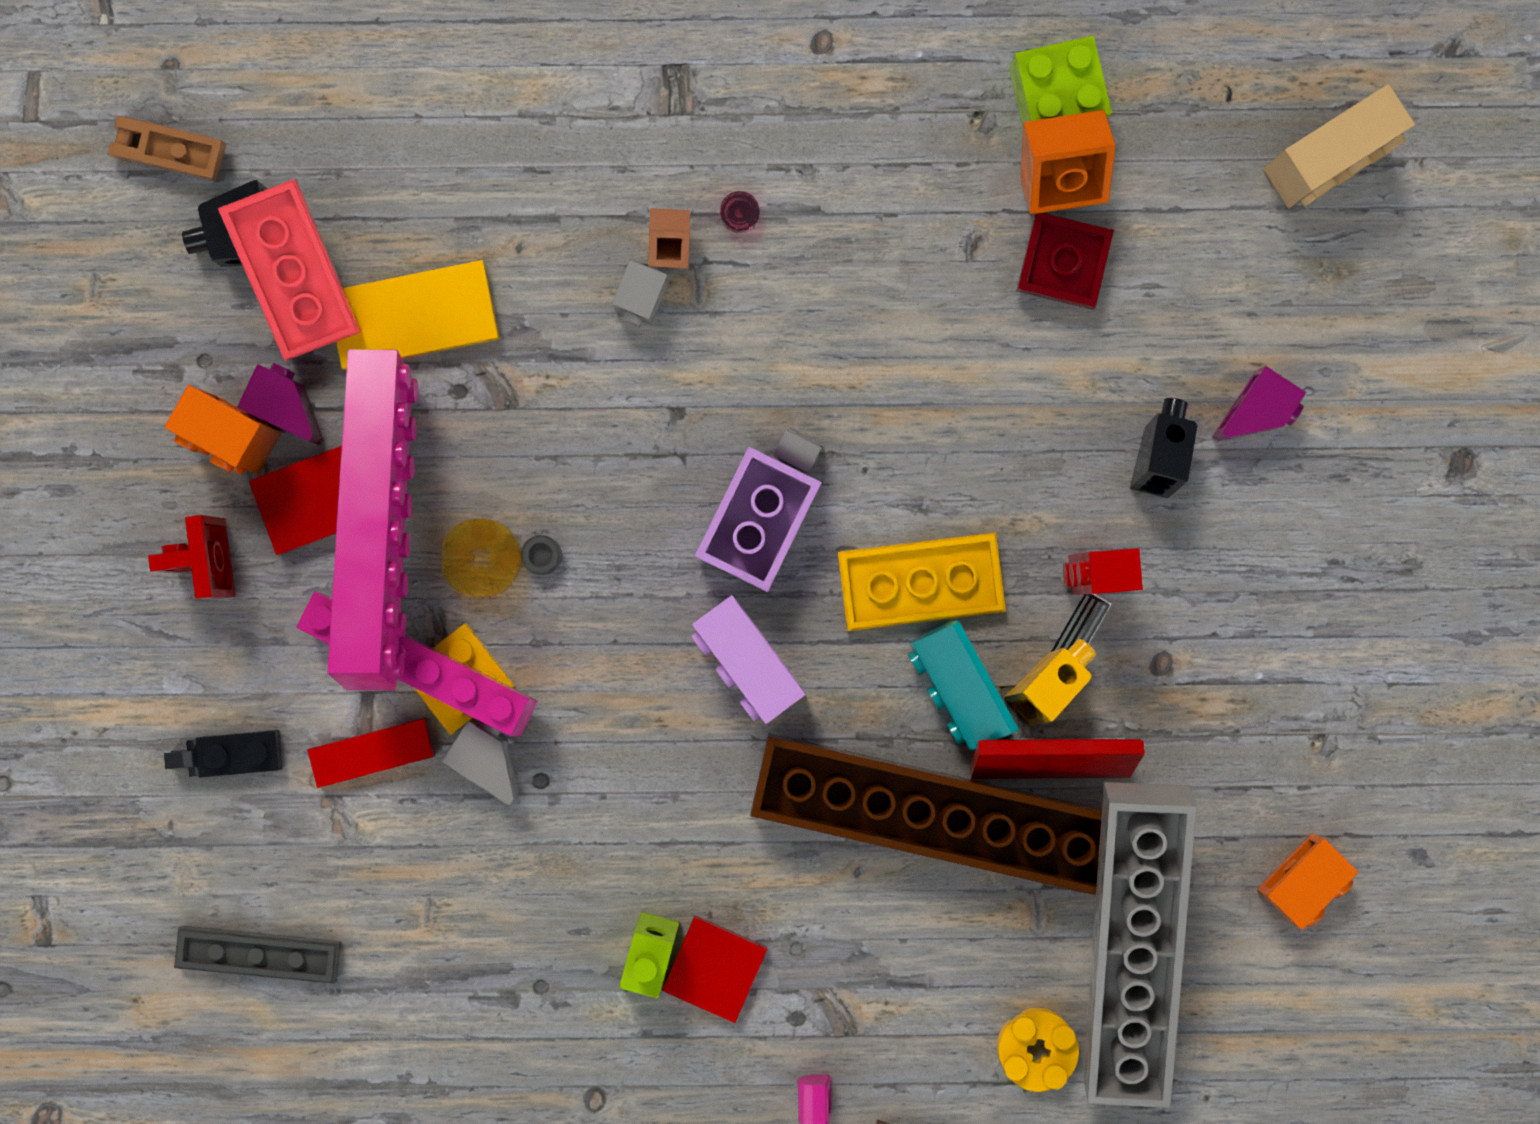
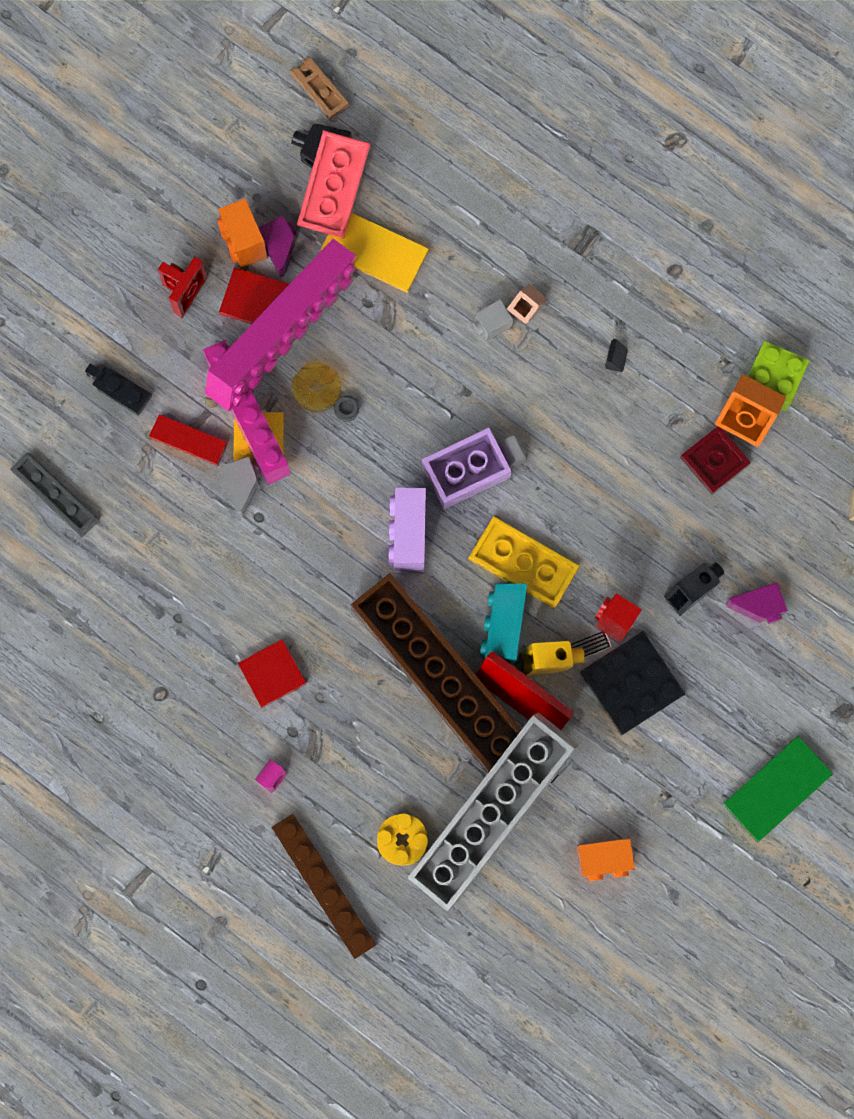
camera: 35 degrees right, 10 degrees down
(649, 955) = (244, 640): lime torso -> none
(739, 212) = (572, 319): clear pink tile -> none
(834, 219) = (616, 356): none -> black slope
(1175, 633) = (632, 683): none -> black plate
(1452, 627) = (777, 789): none -> green tile

